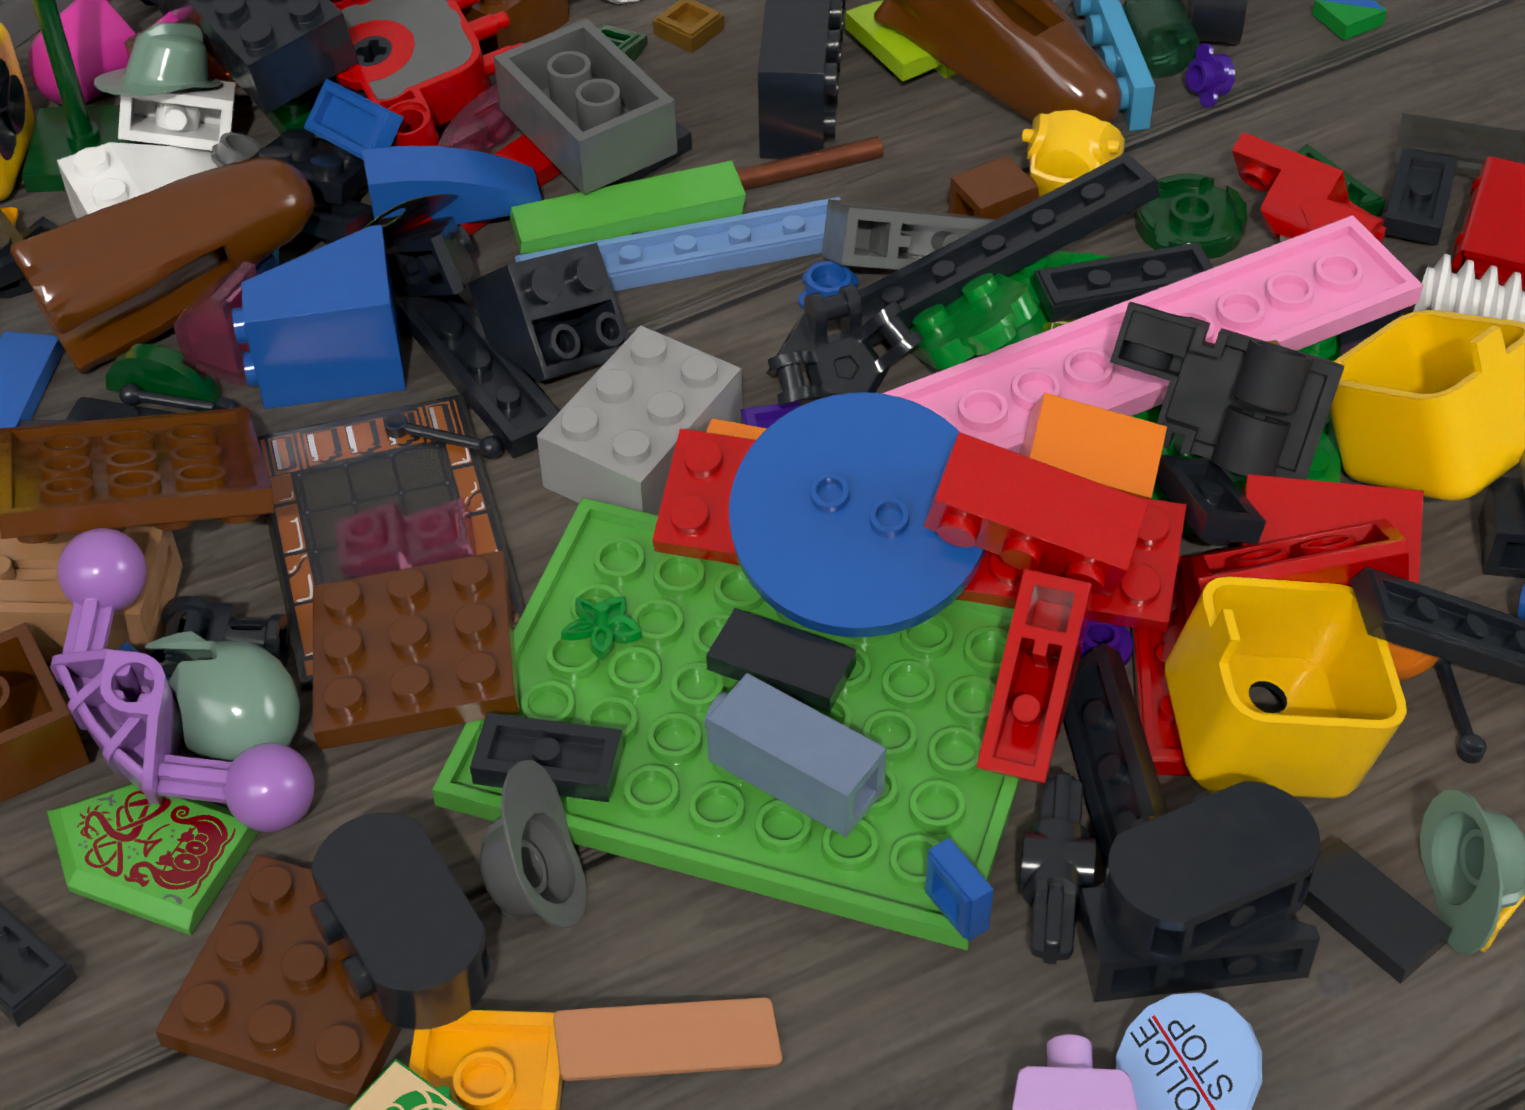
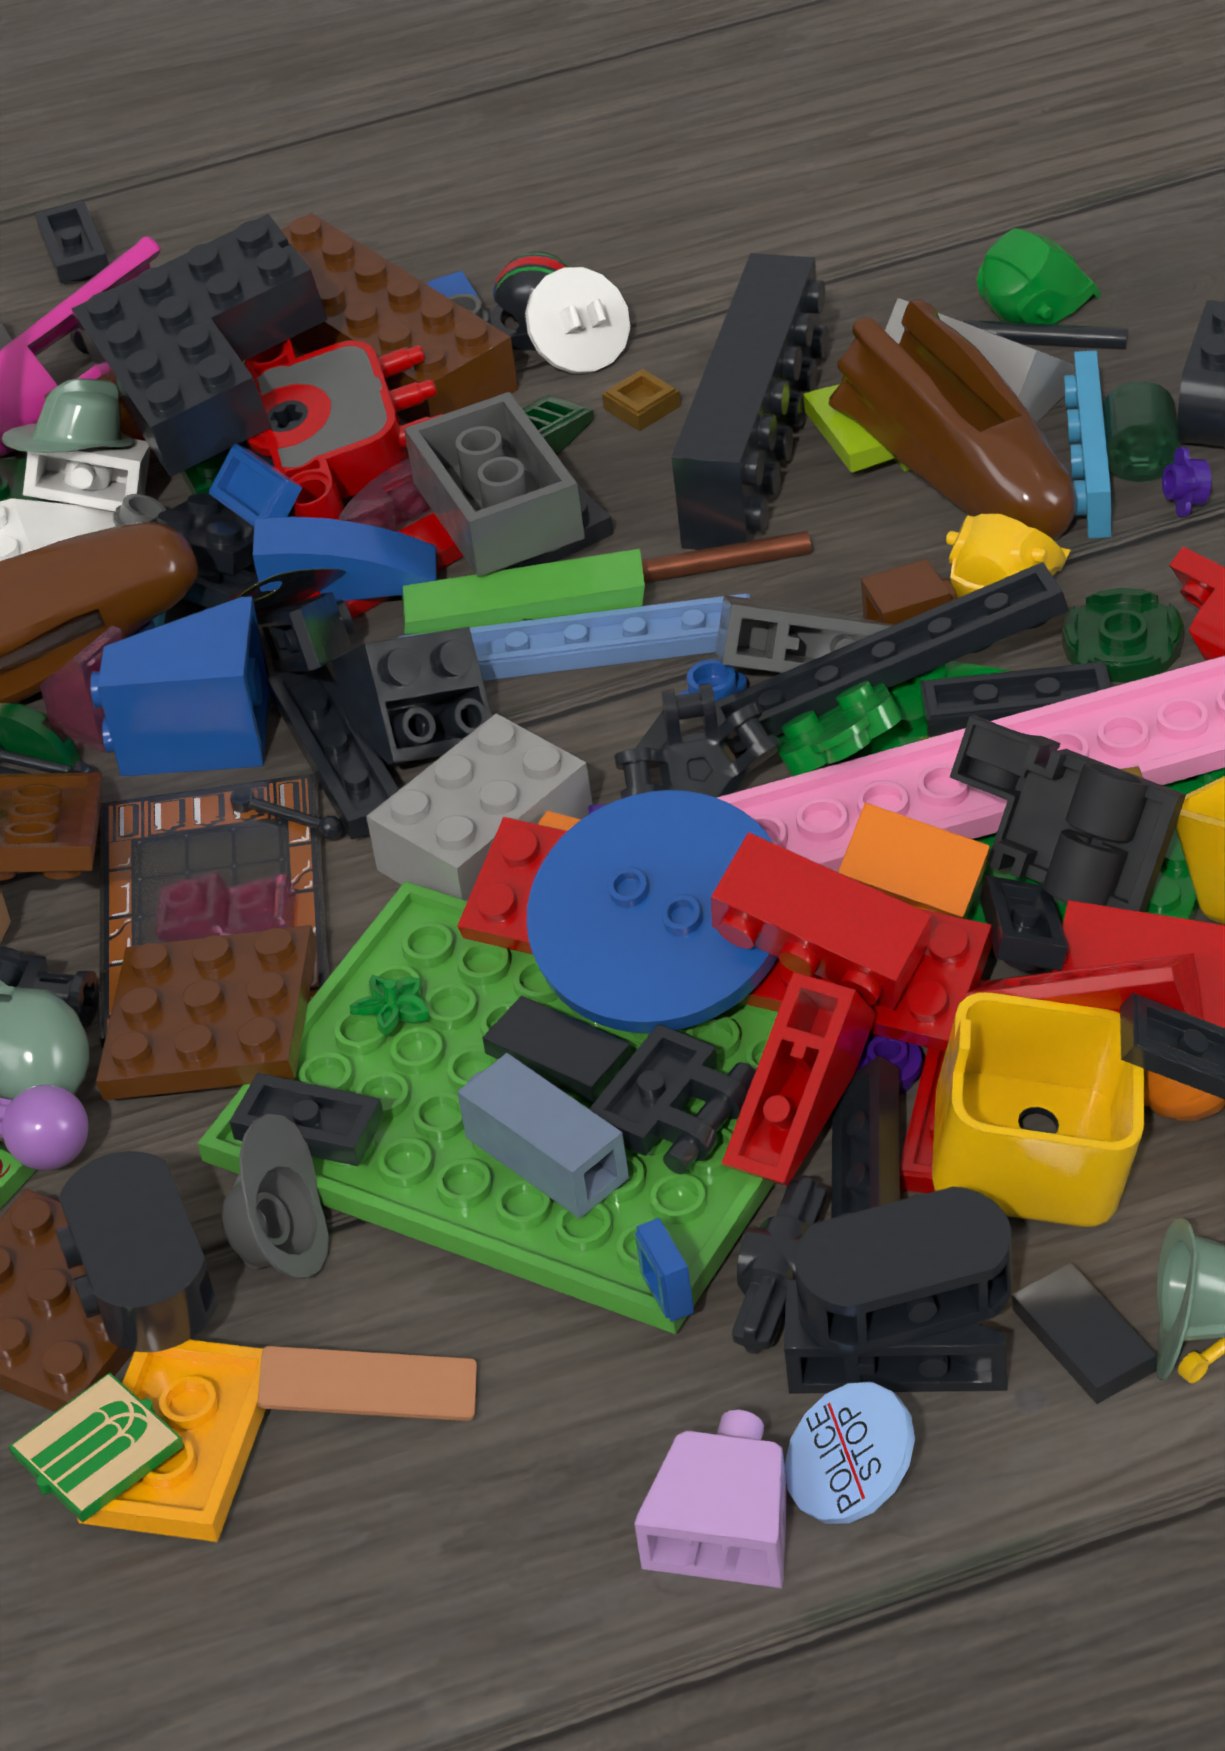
camera: 15 degrees right, 5 degrees down
(896, 691) = (657, 1085): none -> black plate

